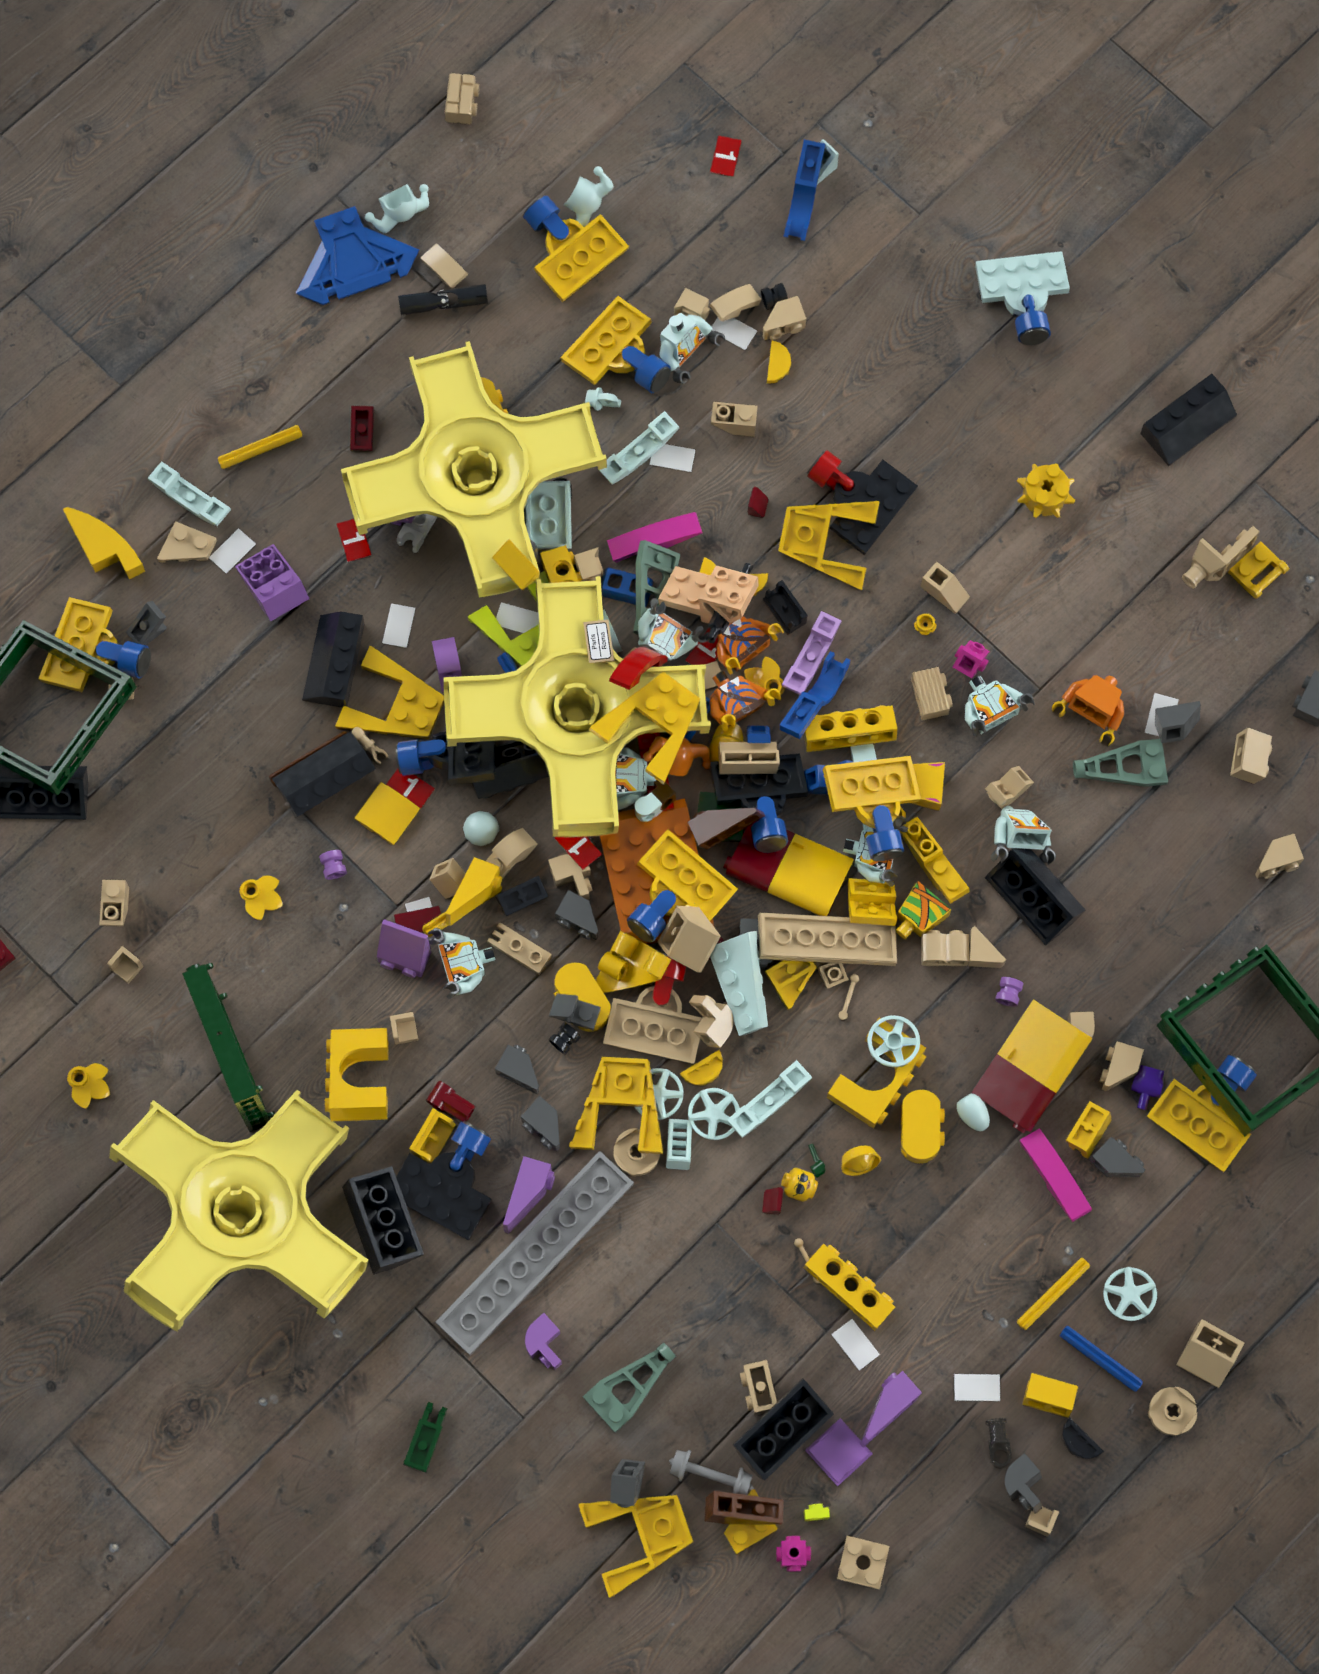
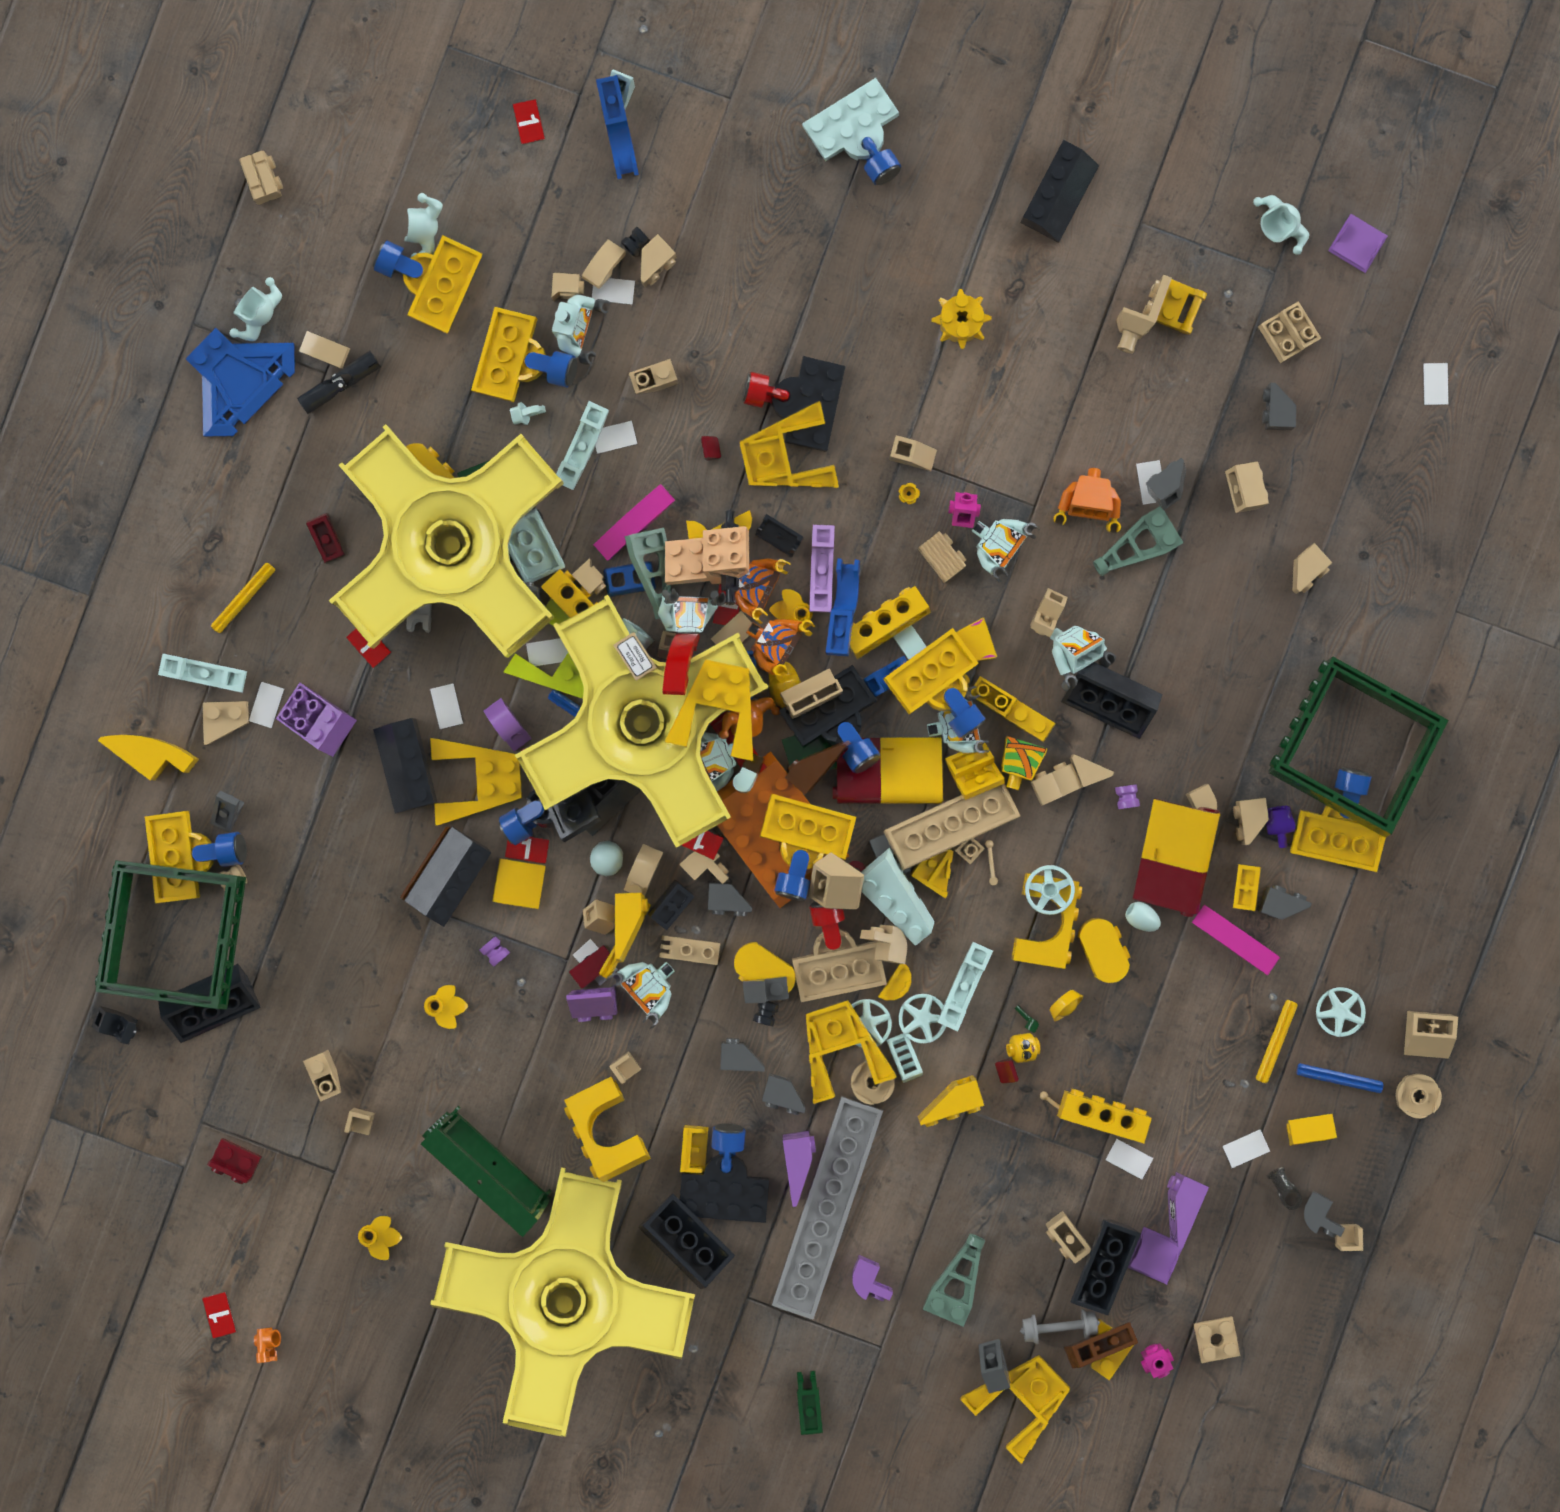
camera: 15 degrees left, 15 degrees up
(368, 744) = (473, 829): tan piece -> none
(446, 1099) = (688, 1111): dark red piece -> none
(516, 565) = (528, 620): yellow slope -> none
(630, 964) = (794, 924): yellow panel -> none
(710, 1200) = (956, 1098): none -> yellow slope
(758, 734) = (809, 666): blue tile -> none
(778, 363) = (668, 303): yellow tile -> none
(816, 1512) = (1160, 1317): neon yellow plate -> none
(1079, 1442) = (1350, 1156): black tile -> none

